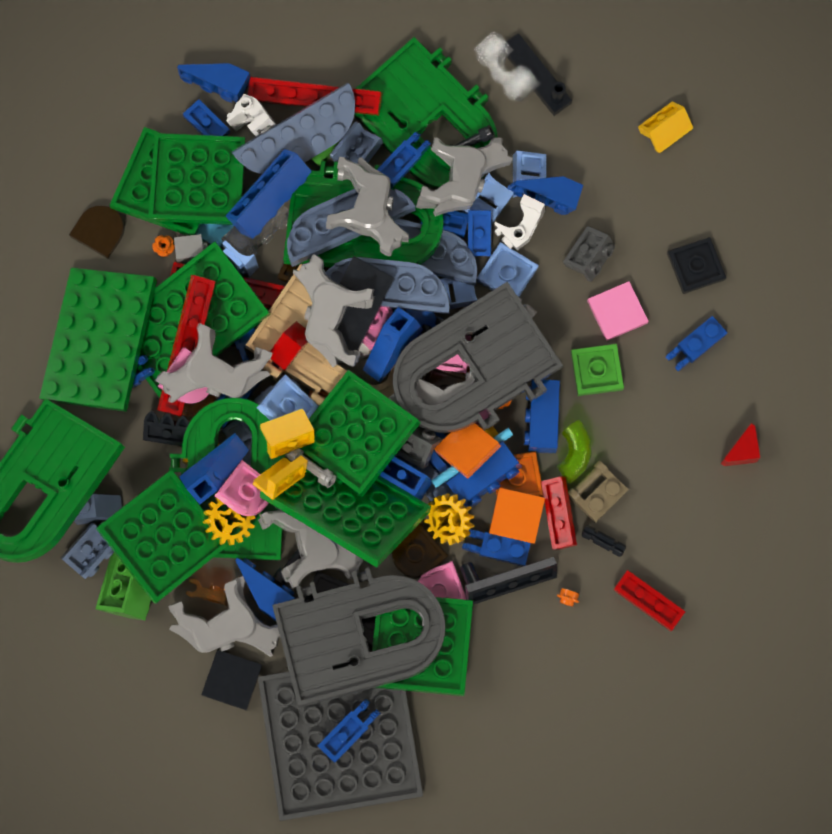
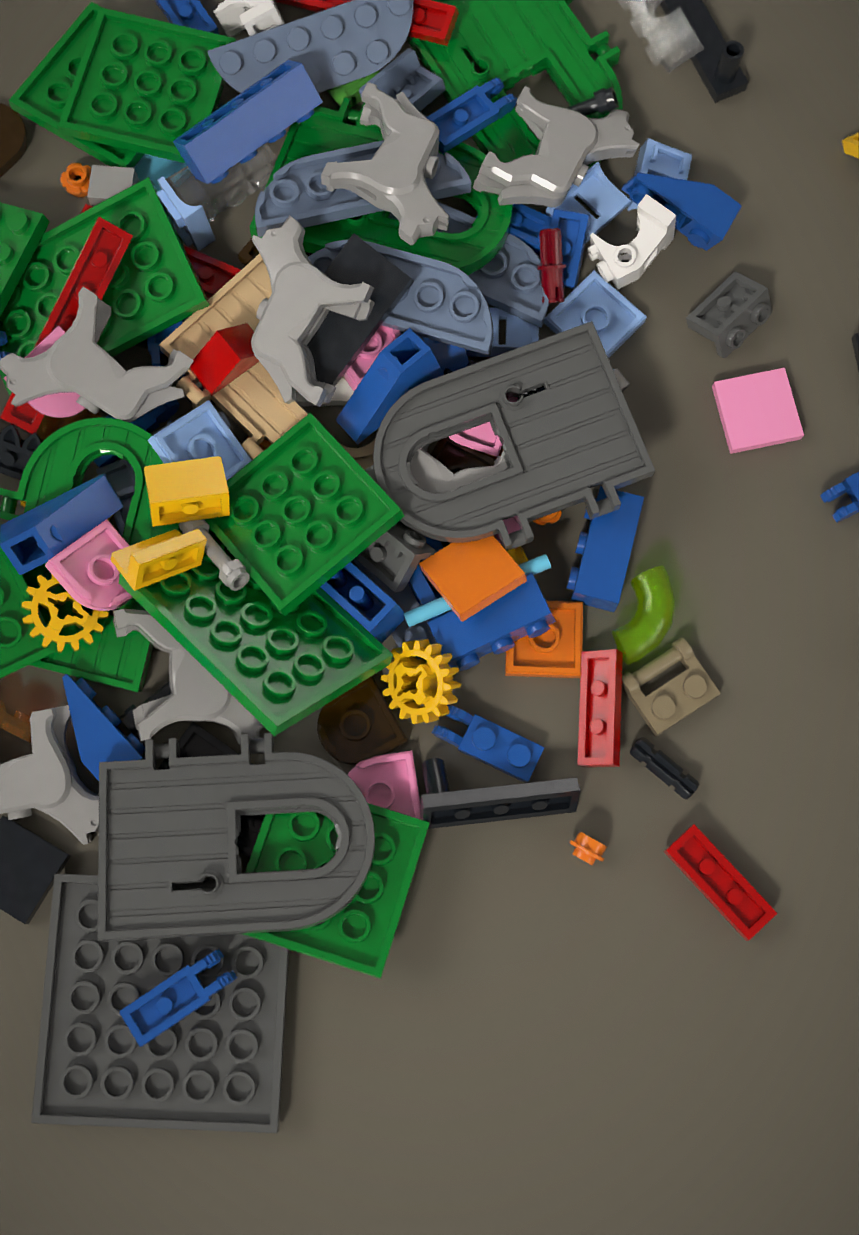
camera: 15 degrees right, 0 degrees up
(474, 246) = (551, 264): none -> dark red axle
(516, 515) = (531, 698): orange tile -> none
(597, 370) = (707, 494): bright green plate -> none

